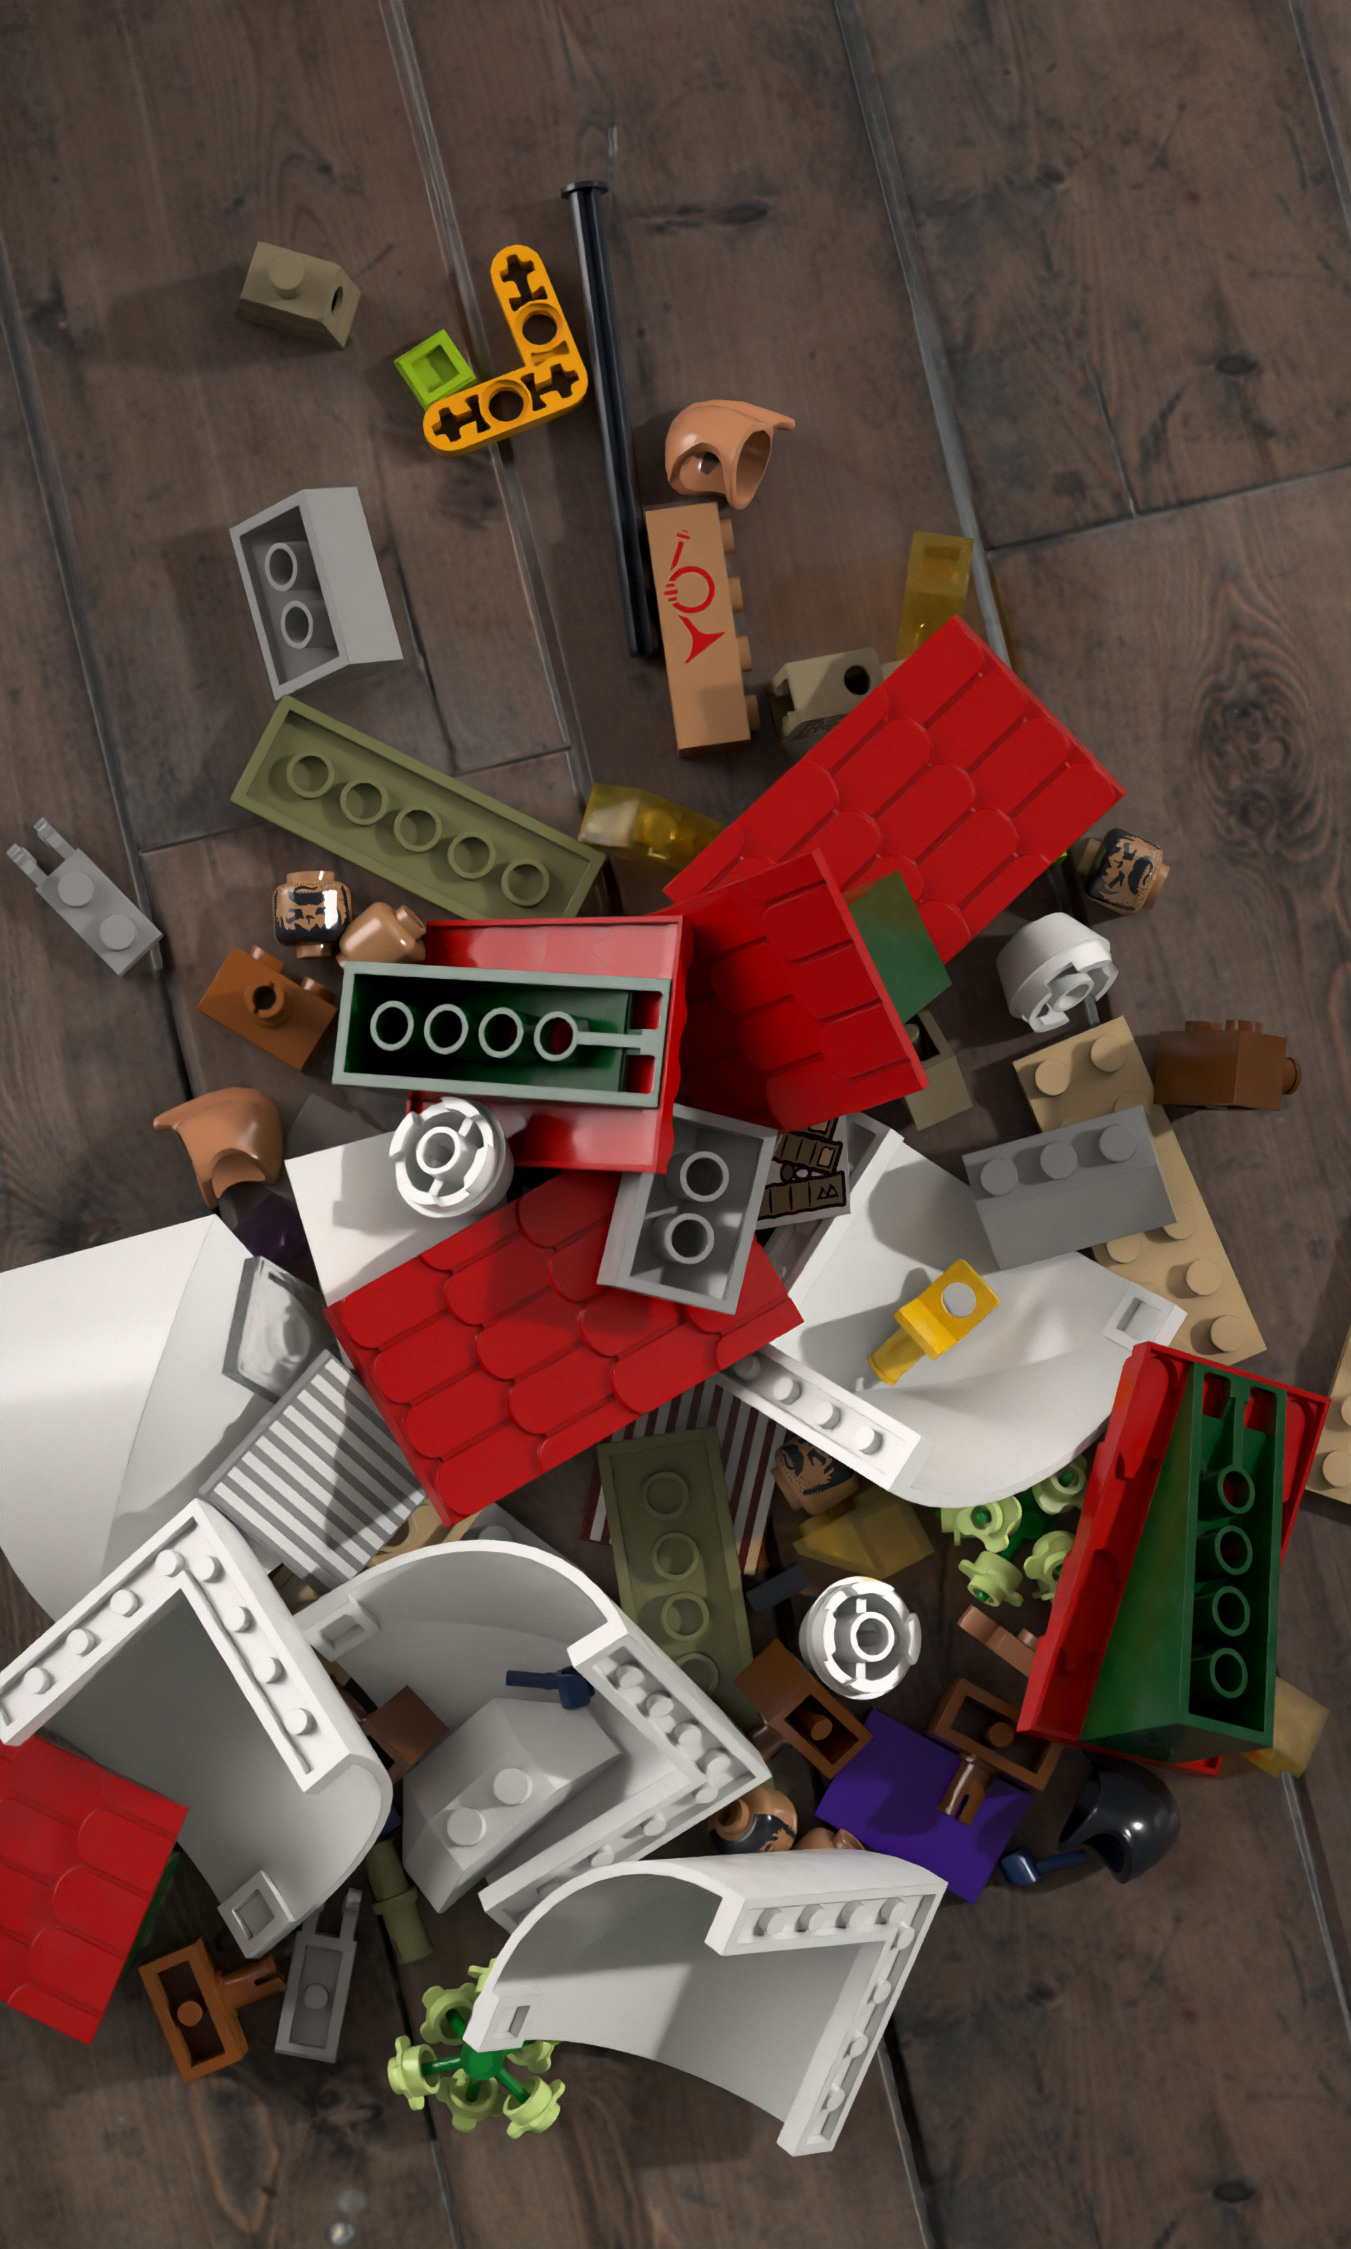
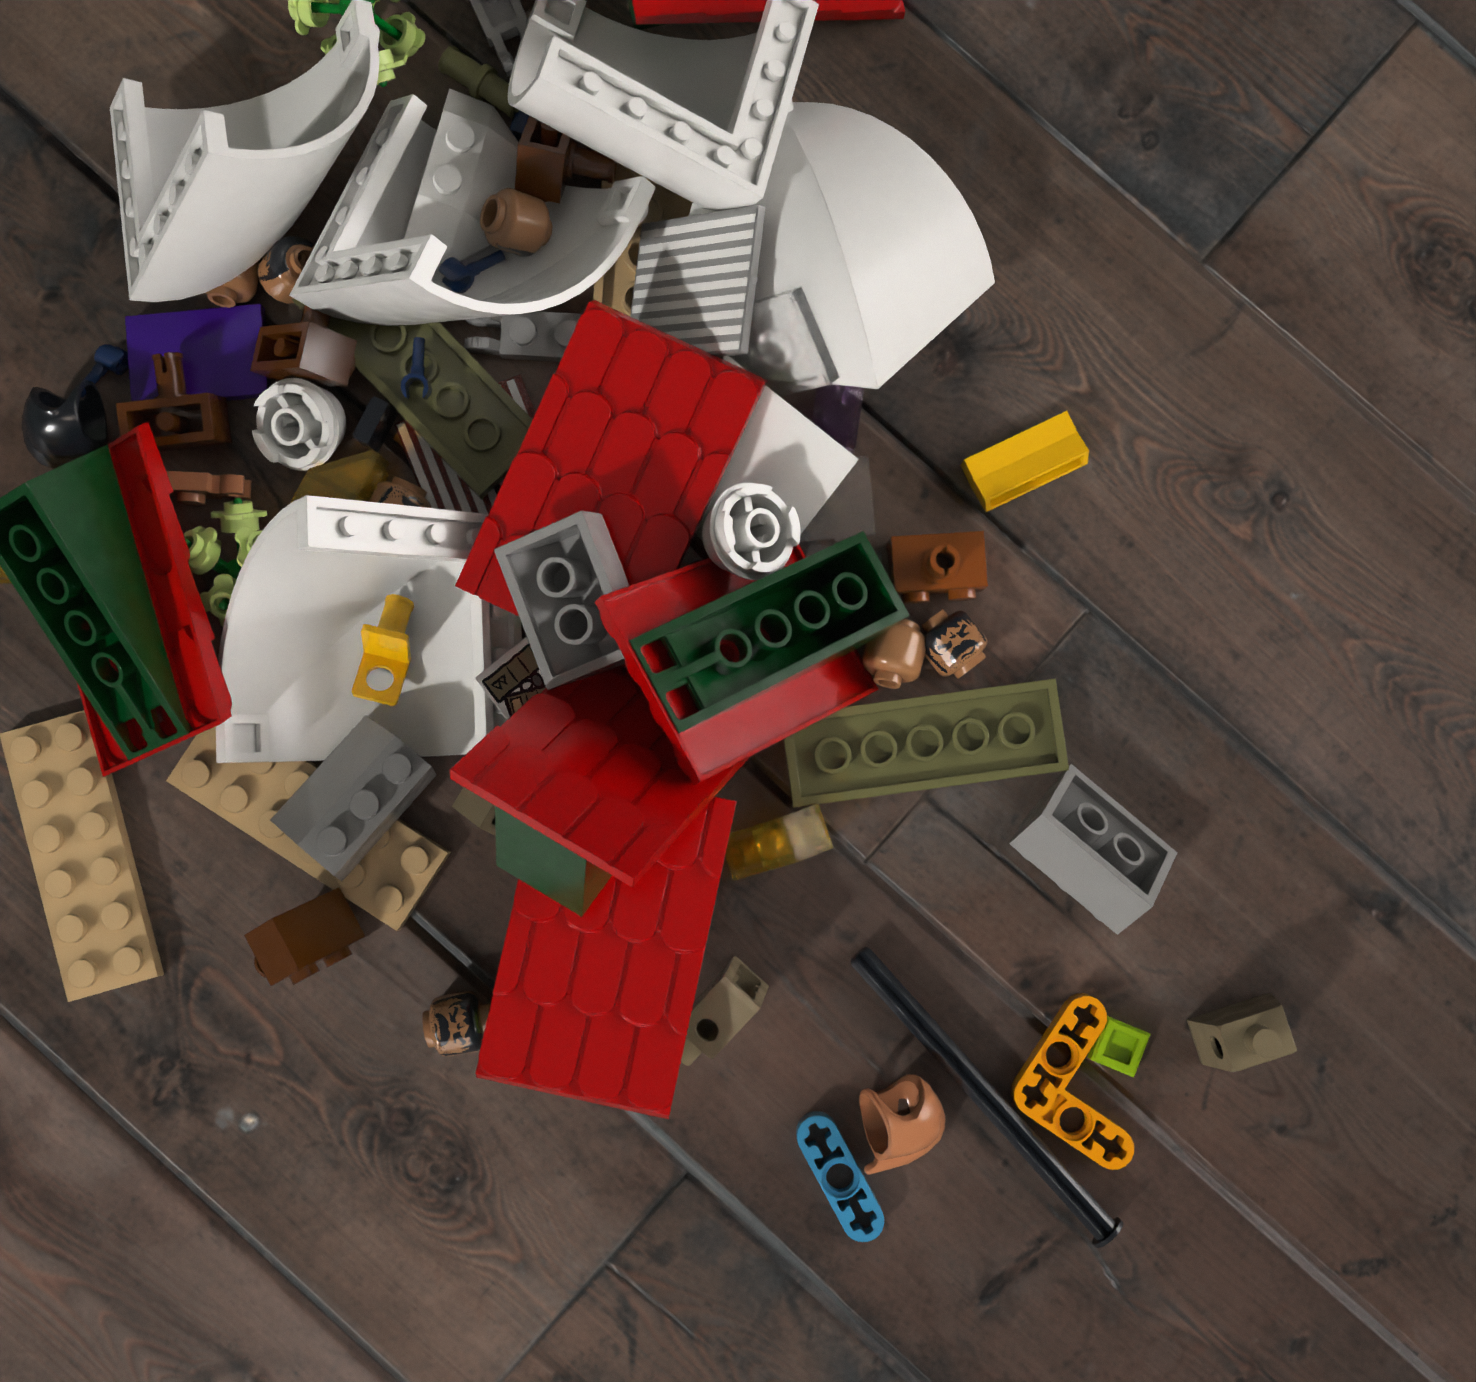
camera: 145 degrees right, 0 degrees up
(89, 902) = (1098, 557): light grey hinge -> none
(93, 1058) = (1025, 461): none -> yellow piece
(229, 1137) = (907, 466): nougat piece -> none
(469, 1693) = (516, 222): none -> medium nougat head
(688, 1611) = (417, 370): none -> dark blue hand
(699, 629) = (835, 994): medium nougat brick -> none
(845, 397) = (866, 1200): none -> dark azure beam
(932, 588) = (700, 1122): clear yellow slope -> none
(1052, 969) = (458, 929): white cone -> none

